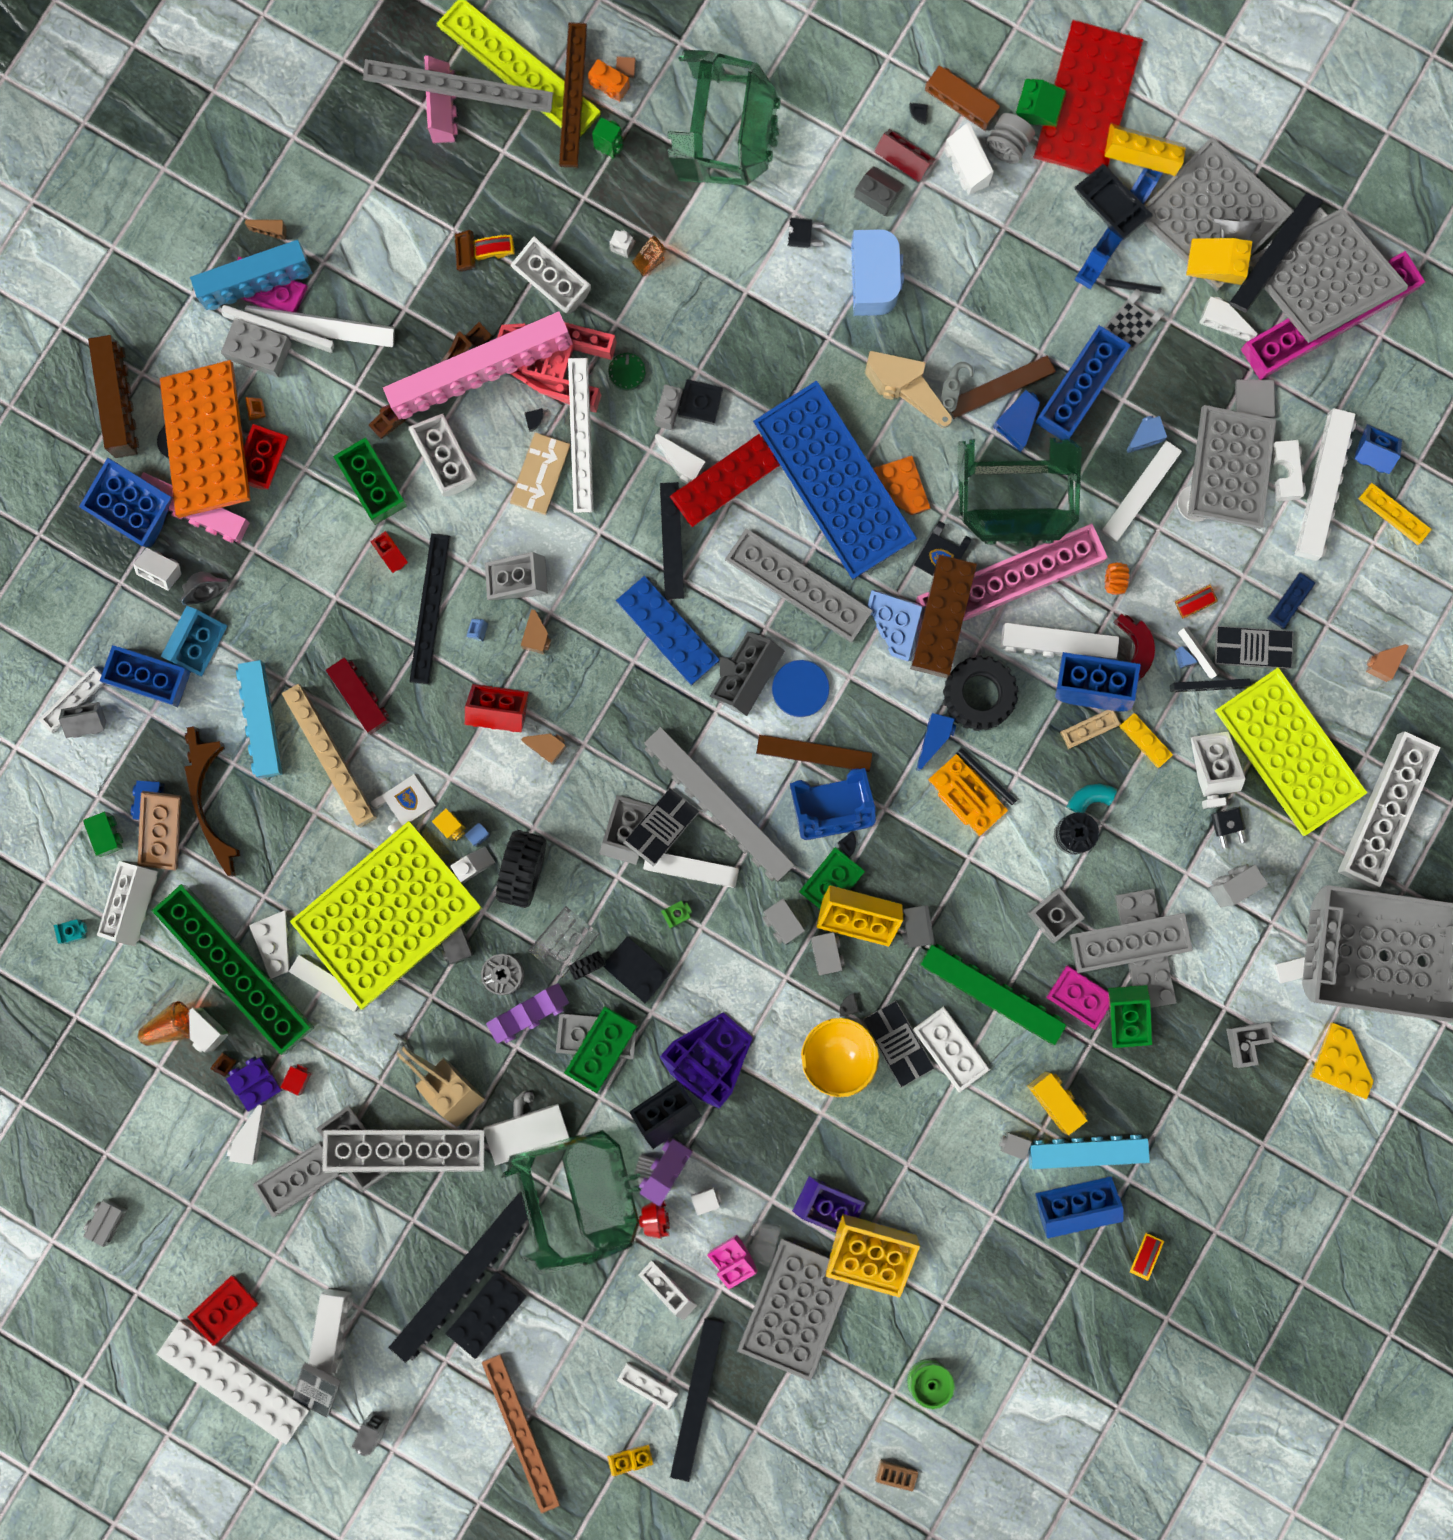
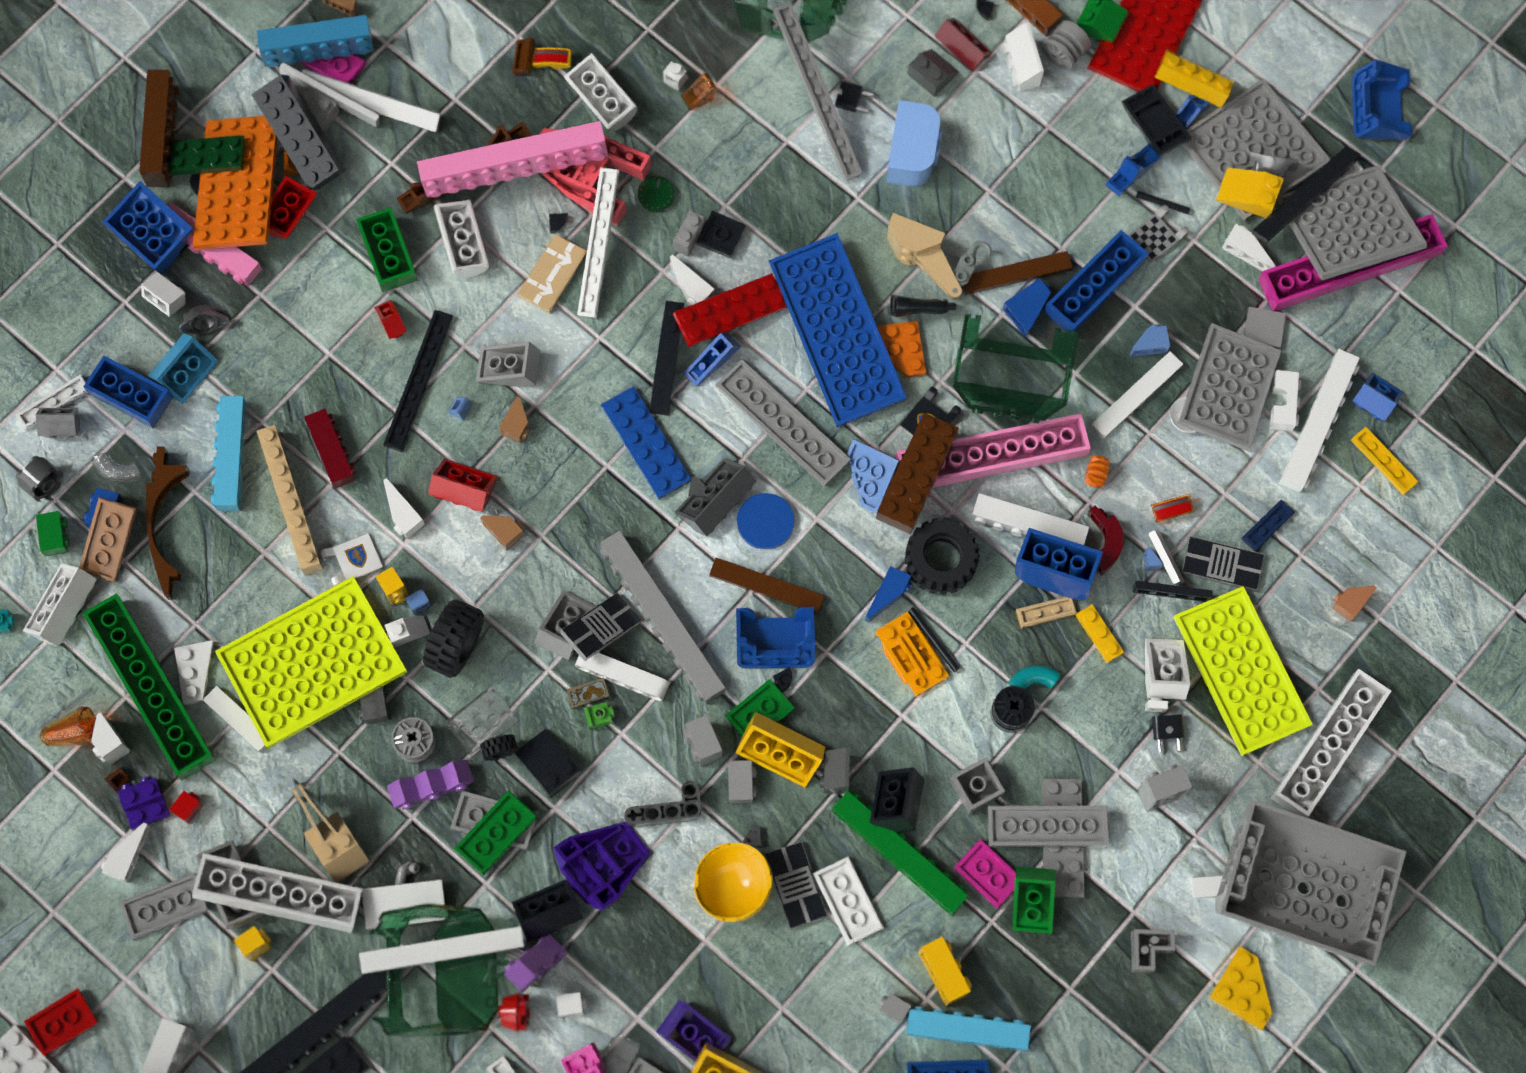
camera: 10 degrees right, 10 degrees down
(77, 781) = (39, 478): none -> dark grey brick
(151, 760) = (115, 472): none -> clear cylinder
(169, 416) = (207, 155): none -> dark green plate
(255, 375) = (298, 132): none -> black brick
(390, 1201) = (253, 943): none -> yellow brick
(444, 750) = (404, 516): none -> white slope
(573, 1176) = (441, 950): none -> white tile
(661, 893) = (588, 693): none -> tile
(716, 532) = (712, 358): none -> blue slope
(756, 995) = (662, 809): none -> dark grey beam
(769, 234) = (817, 91): none -> light grey plate
(898, 443) = (906, 306): none -> black piece
(981, 944) = (897, 799): none -> black slope
(1330, 140) = (1378, 101): none -> blue windscreen

